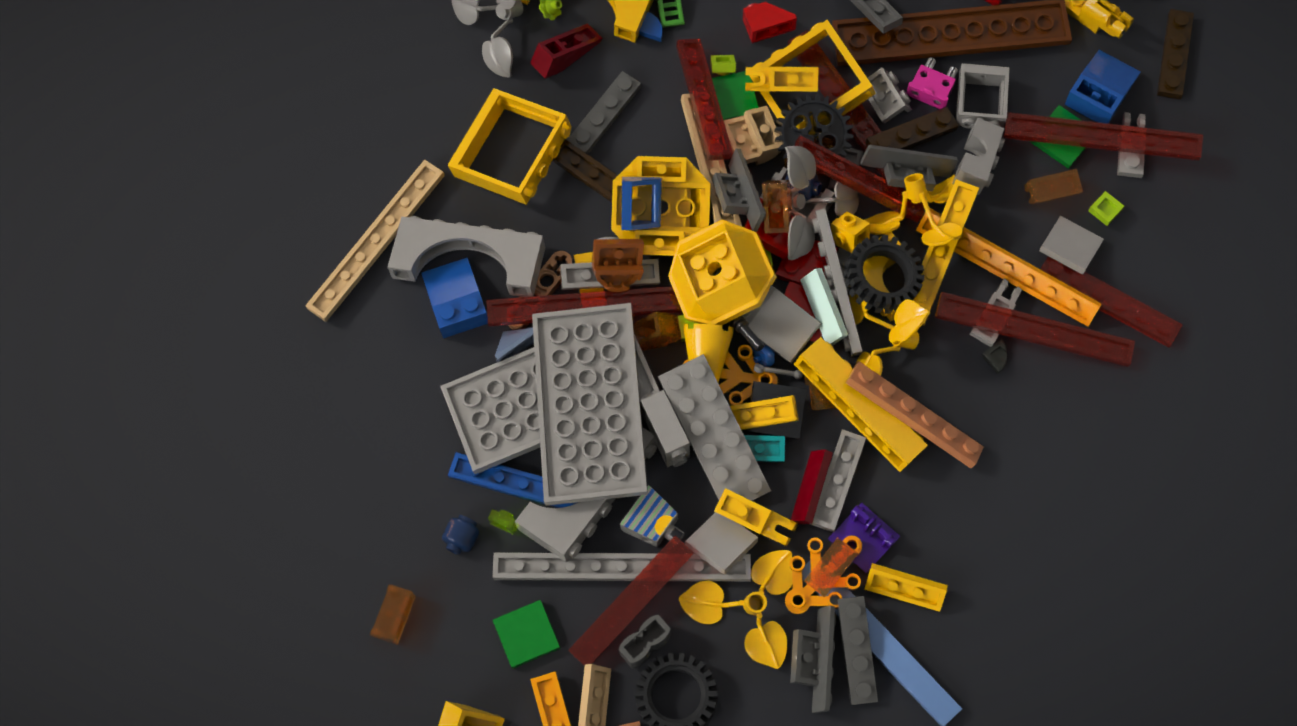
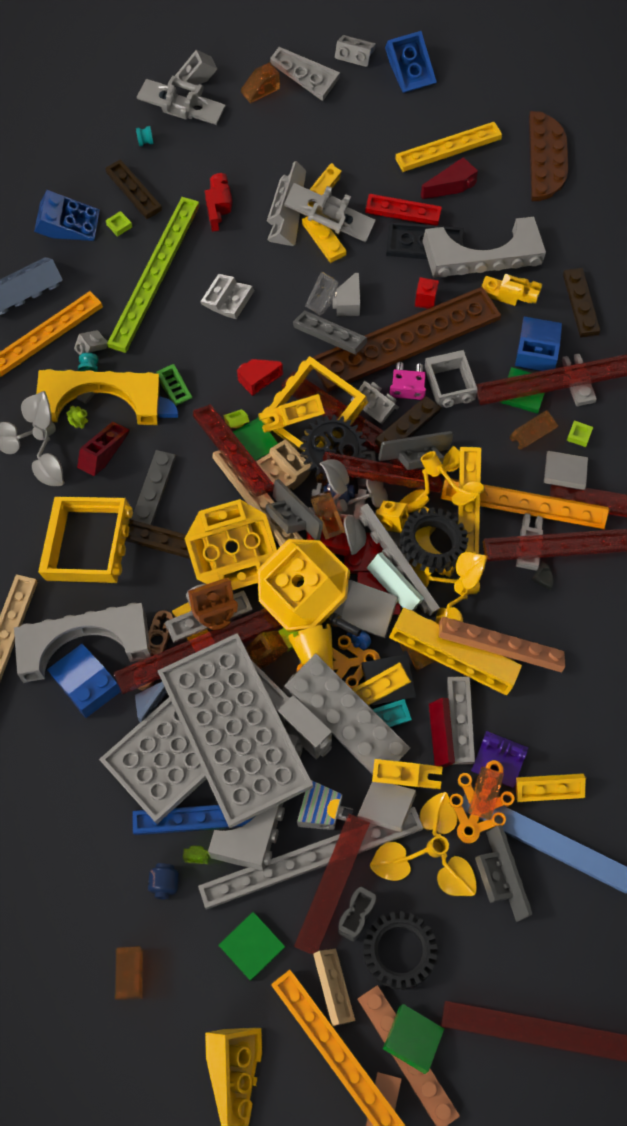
camera: 25 degrees left, 5 degrees down
(627, 222) = (204, 552): blue tile -> none
(760, 369) = (393, 645): light grey hinge -> none
(857, 650) = (533, 855): dark grey plate -> none
(984, 142) = (467, 414): light grey arch -> none

